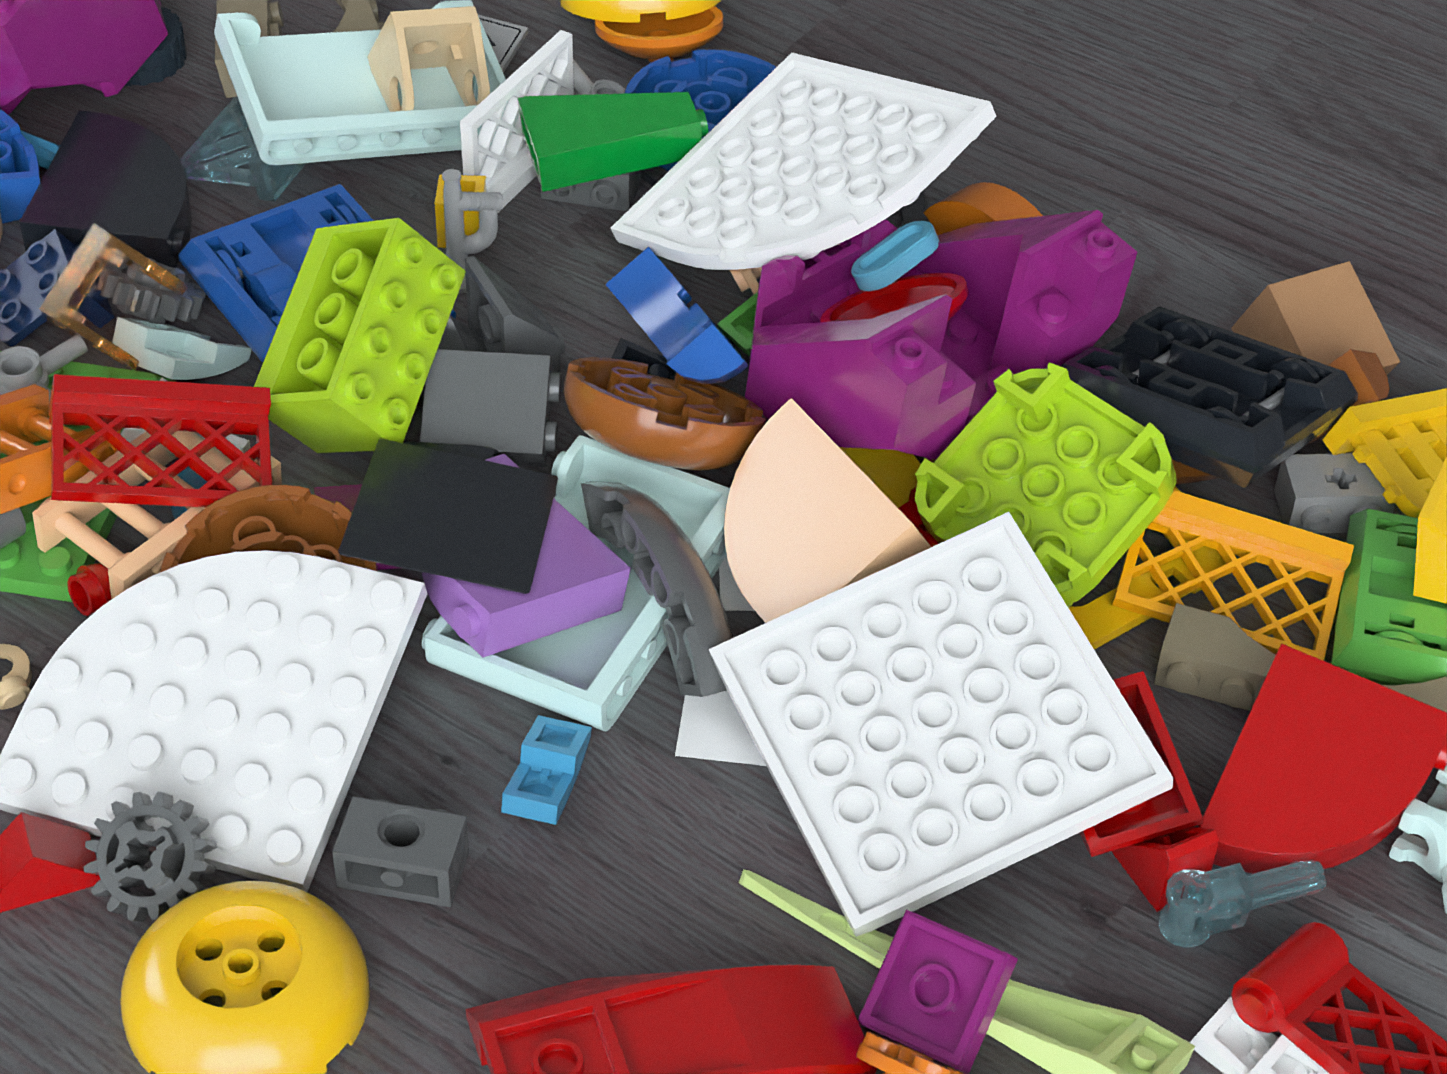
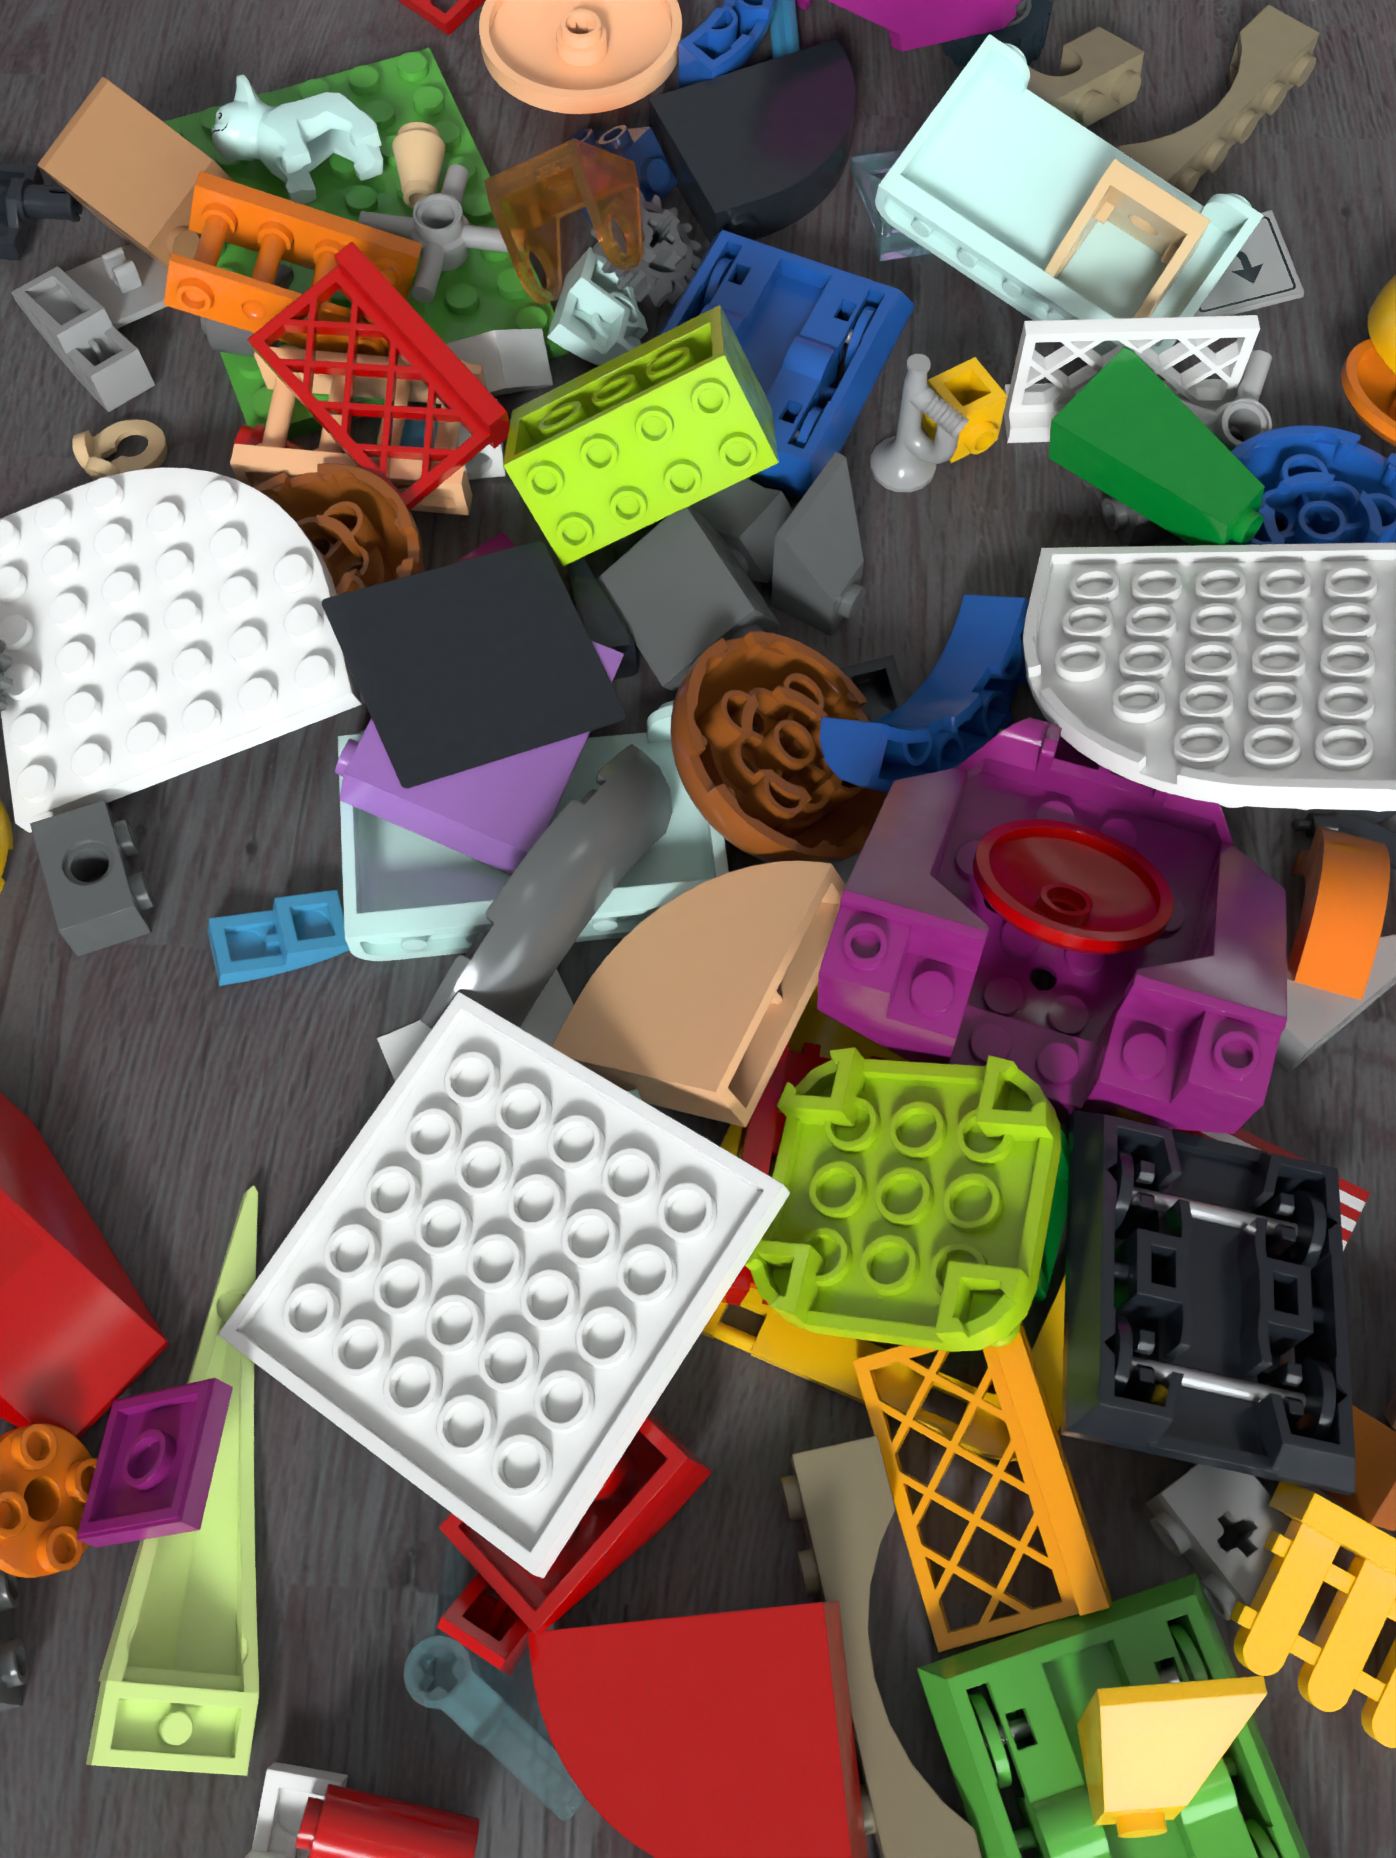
camera: 60 degrees right, 20 degrees up
(895, 255) = (1172, 838): medium azure tile -> none

